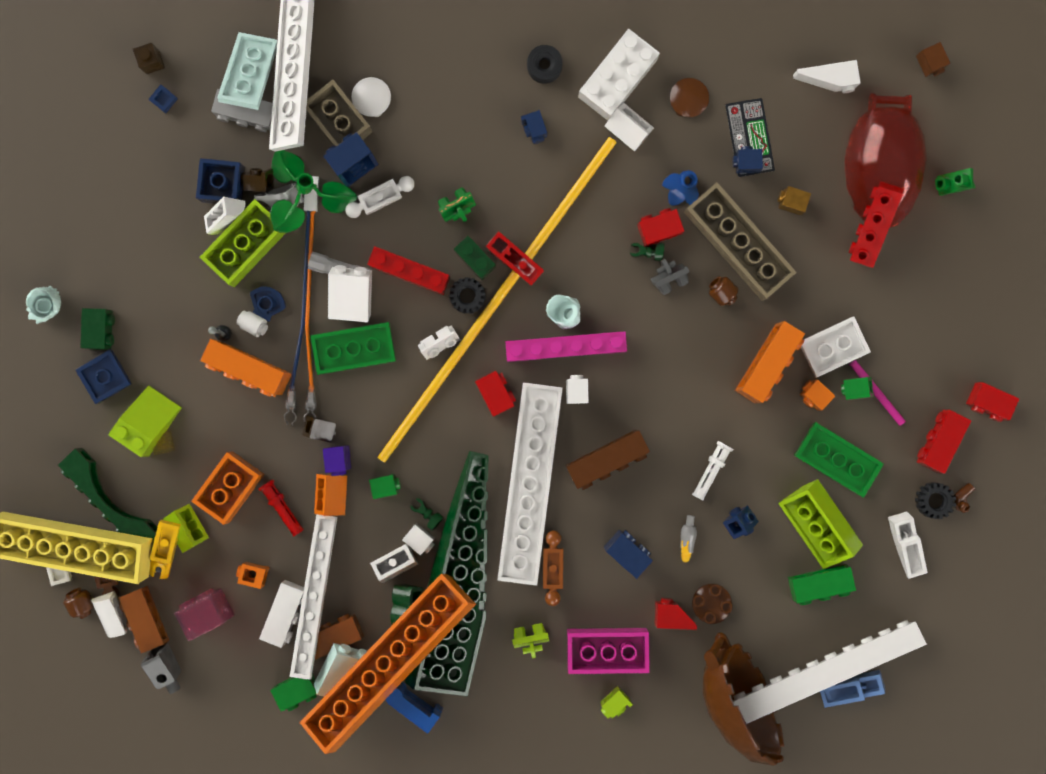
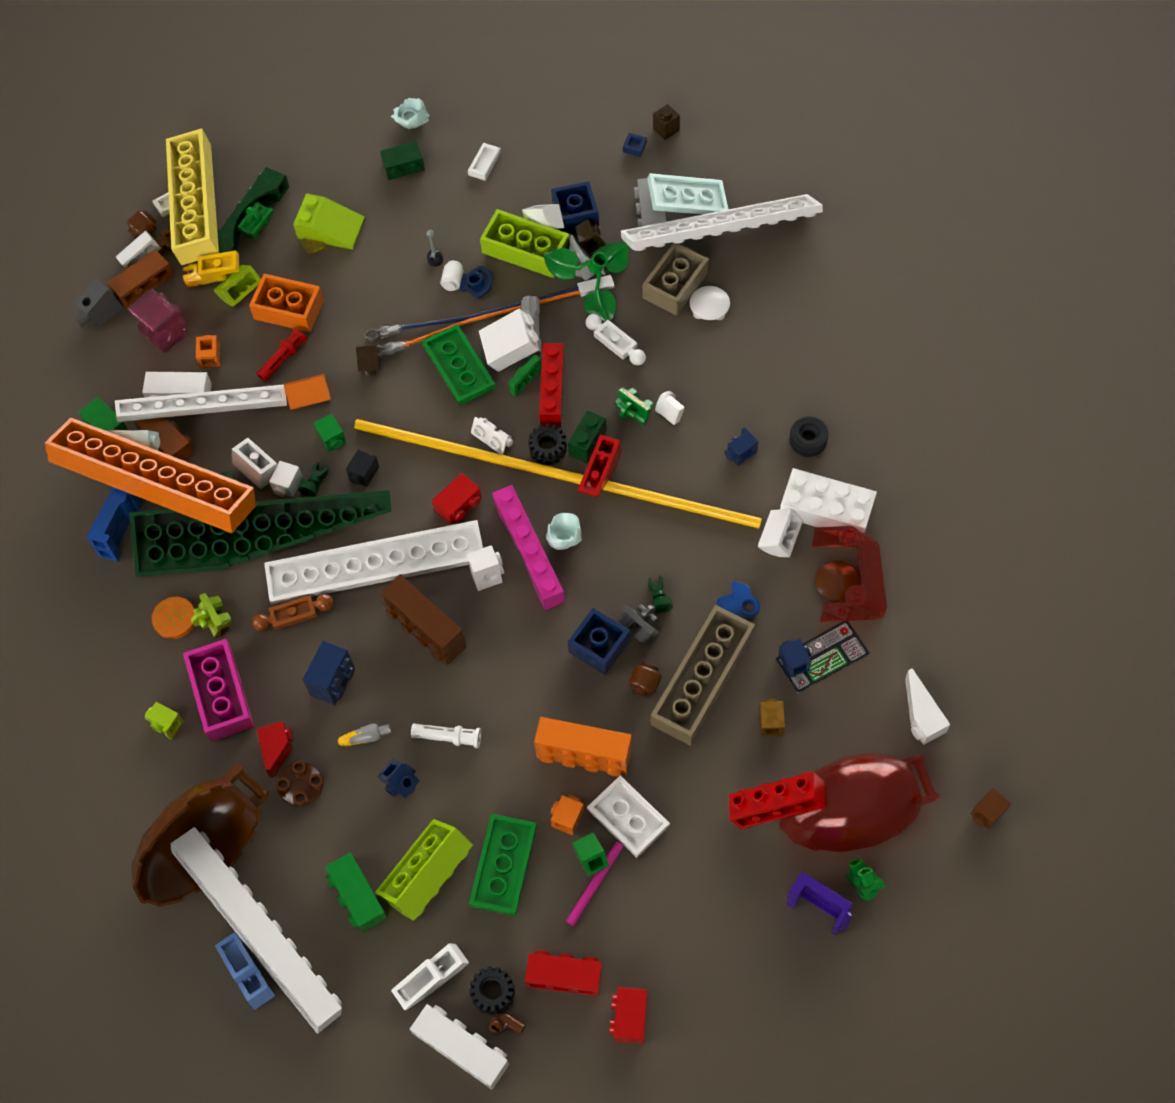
camera: 75 degrees right, 25 degrees down
(103, 376) = (360, 179): dark blue plate -> none
(116, 491) = (255, 220): none -> green hips
(125, 250) = (484, 161): none -> white tile
(241, 365) = (406, 280): orange brick -> none
(337, 460) = (342, 380): dark purple brick -> none
(351, 159) = (637, 296): dark blue brick -> none
(387, 291) = (525, 375): none -> green plate
(432, 468) = (362, 468): none -> black brick
(471, 174) = (669, 407): none -> white tile
(519, 671) = (173, 617): none -> orange tile
(660, 227) = (688, 595): red brick -> none
(678, 317) = (599, 641): none -> dark blue brick
(719, 74) = (863, 600): none -> clear red windscreen
(948, 234) = (821, 898): none -> dark purple panel
(970, 538) = (459, 1046): none -> white brick

